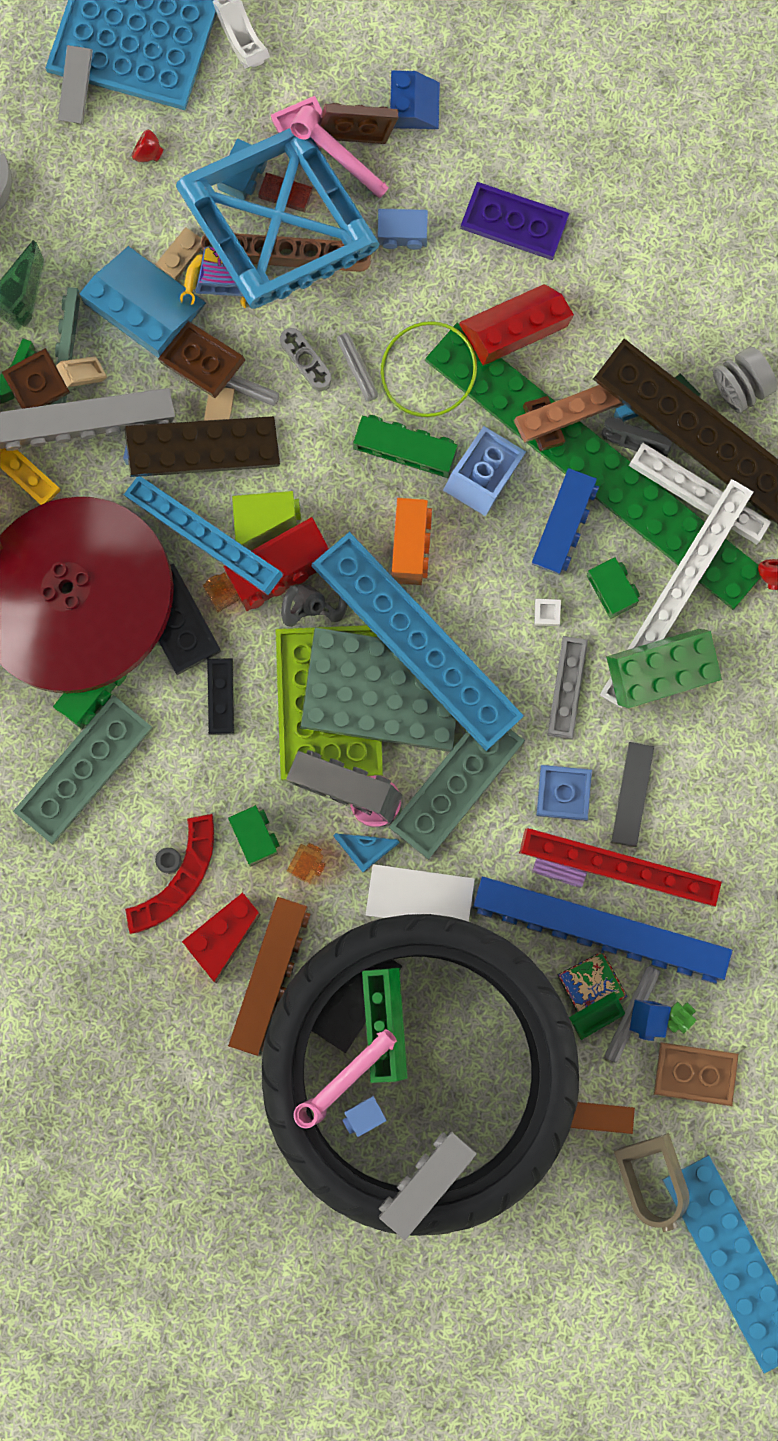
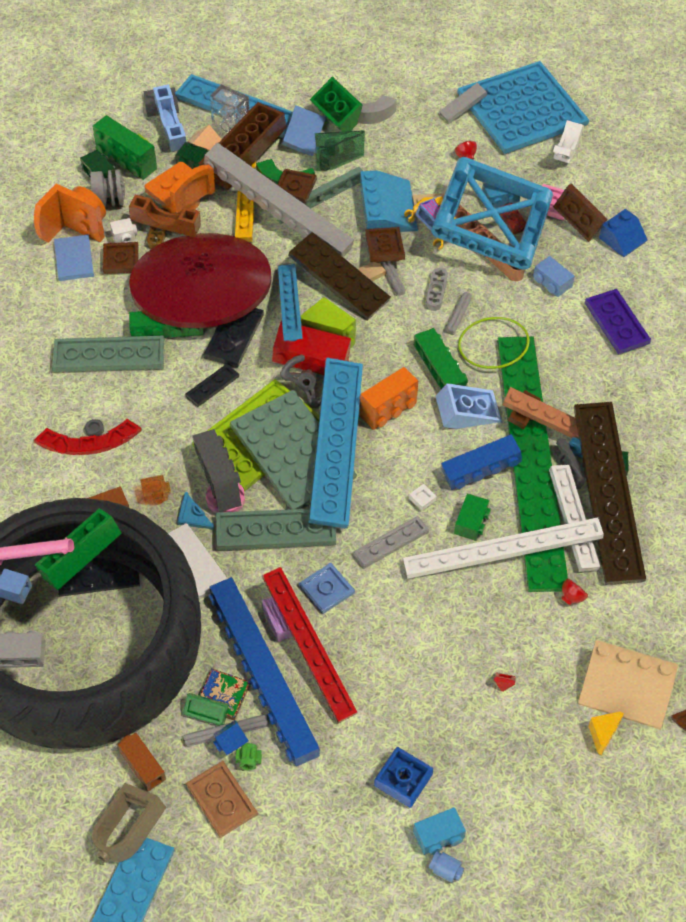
camera: 45 degrees right, 25 degrees down
(81, 371) = (322, 202): tan tile -> none
(220, 592) = (266, 338): clear orange brick -> none
(222, 935) = (73, 479): red wedge -> none
(253, 835) = (146, 453): green brick -> none
(306, 126) = (554, 189): bright pink piece -> none
(517, 323) = (563, 361): red slope -> none
(632, 794) = (362, 624): dark grey tile -> none
(664, 668) = (452, 572): green brick -> none
(745, 379) = (662, 485): light grey wheel -> none

